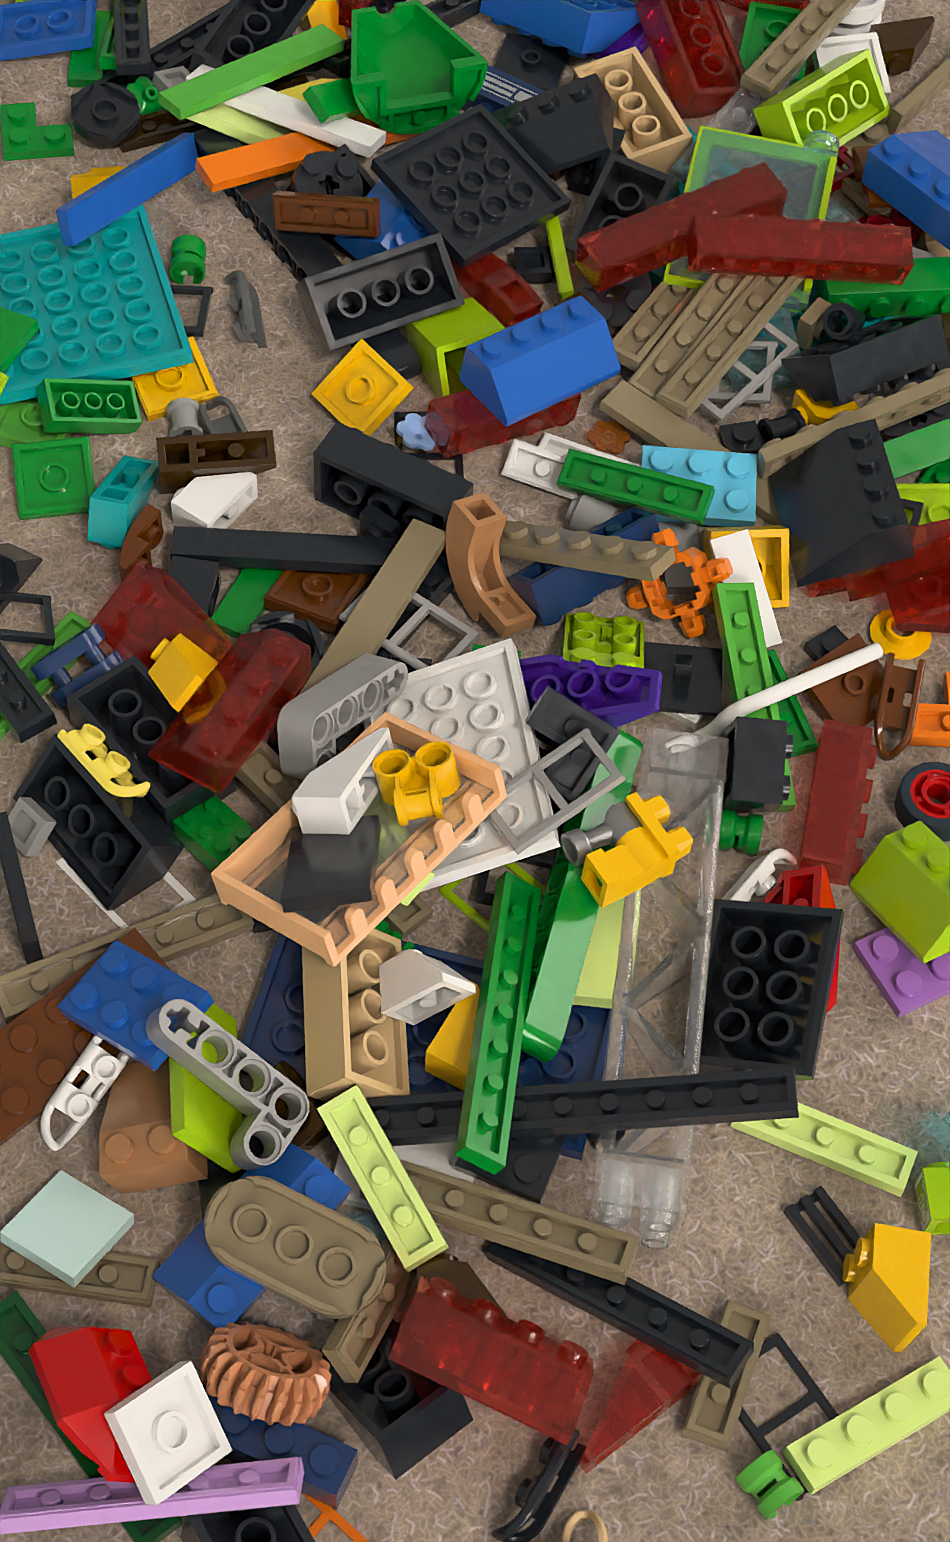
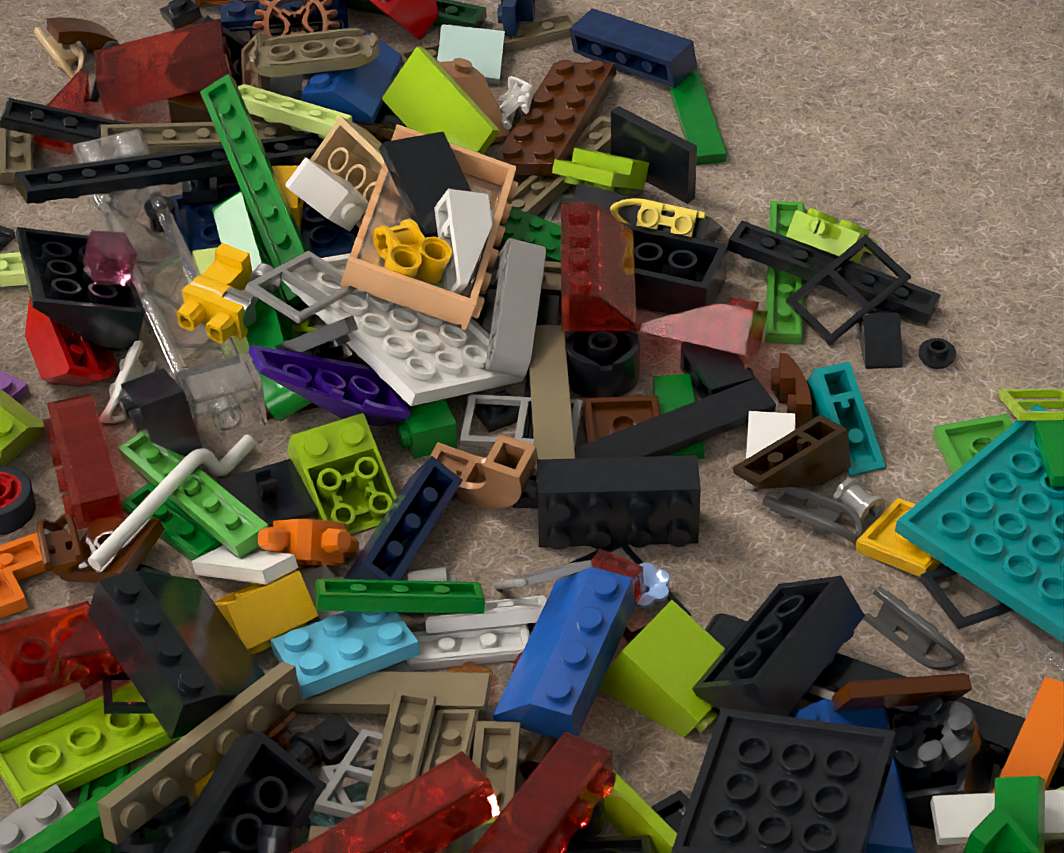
camera: 155 degrees right, 15 degrees down
(30, 826) = (688, 201): light grey plate -> none
(53, 477) = (916, 409): green tile -> none
(54, 662) = (749, 281): dark blue brick -> none
(88, 406) = (941, 451): green piece -> none
(94, 887) = (602, 171): none -> lime plate
(120, 996) = (509, 107): blue plate -> none
(180, 669) = (657, 287): yellow slope -> none
(187, 259) = (1007, 641): green wheel -> none
(223, 1079) = (414, 84): light grey beam -> none
(362, 389) = (725, 589): yellow plate -> none
(499, 289) = (654, 743): clear red slope -> none
(536, 456) = (542, 575): none -> light grey window
(585, 550) = (421, 496): dark tan plate -> none
(726, 970) = (109, 258): none -> clear pink brick

